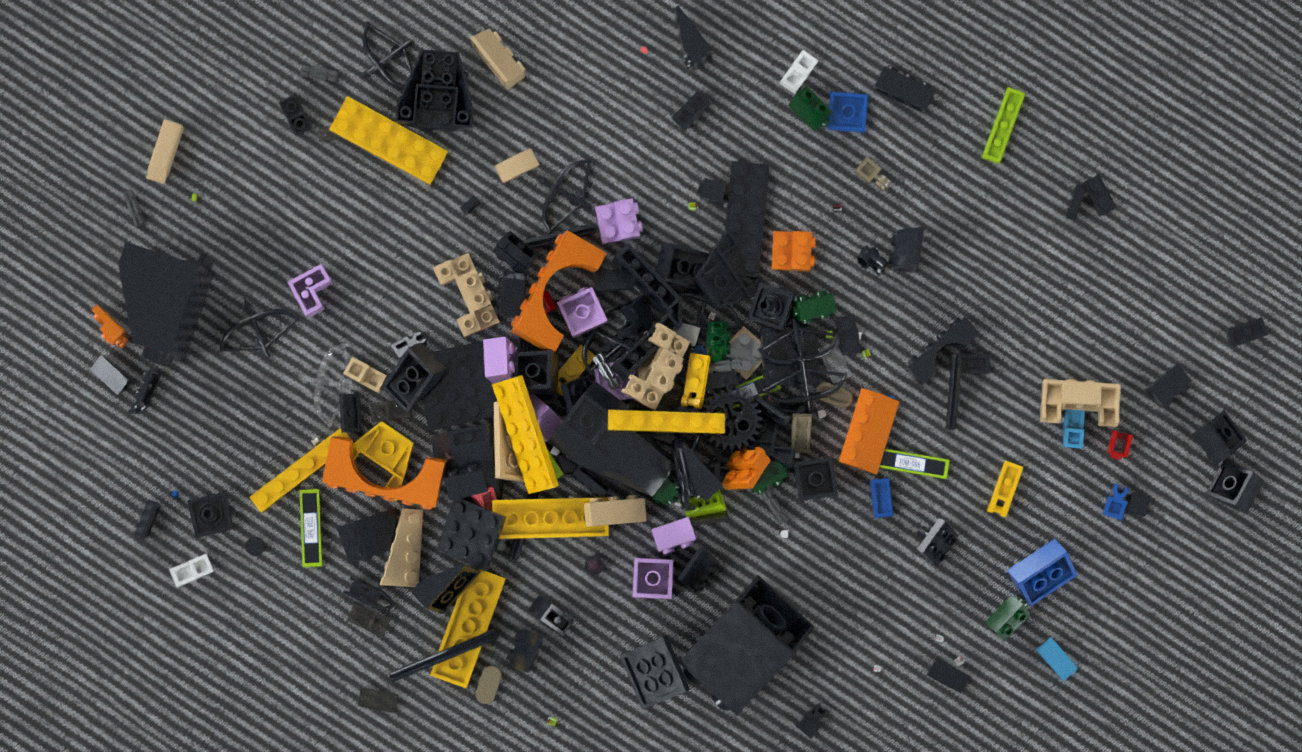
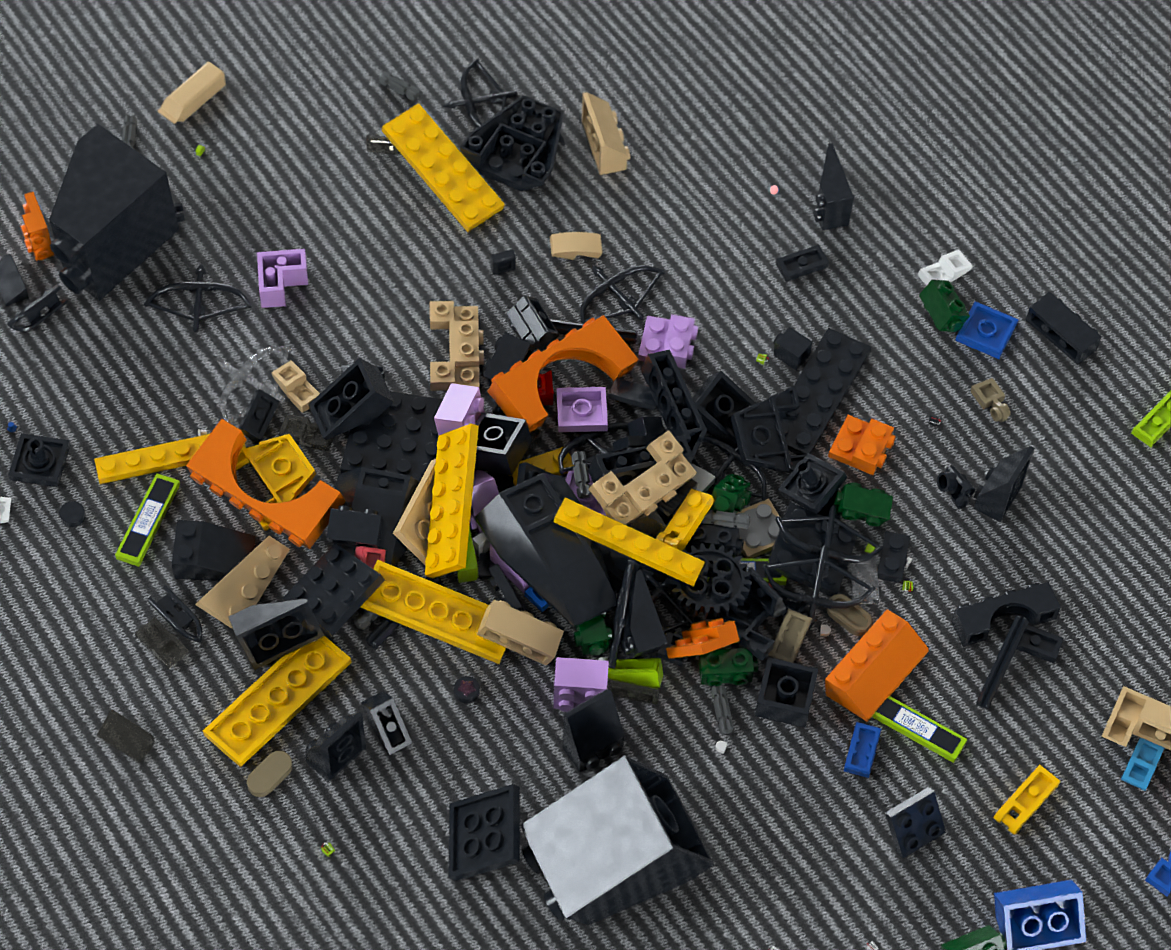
camera: 25 degrees right, 25 degrees down
(295, 115) = (352, 112): black slope -> none
(443, 655) = (231, 711): black axle -> none
(652, 578) = (531, 726): lavender brick -> none

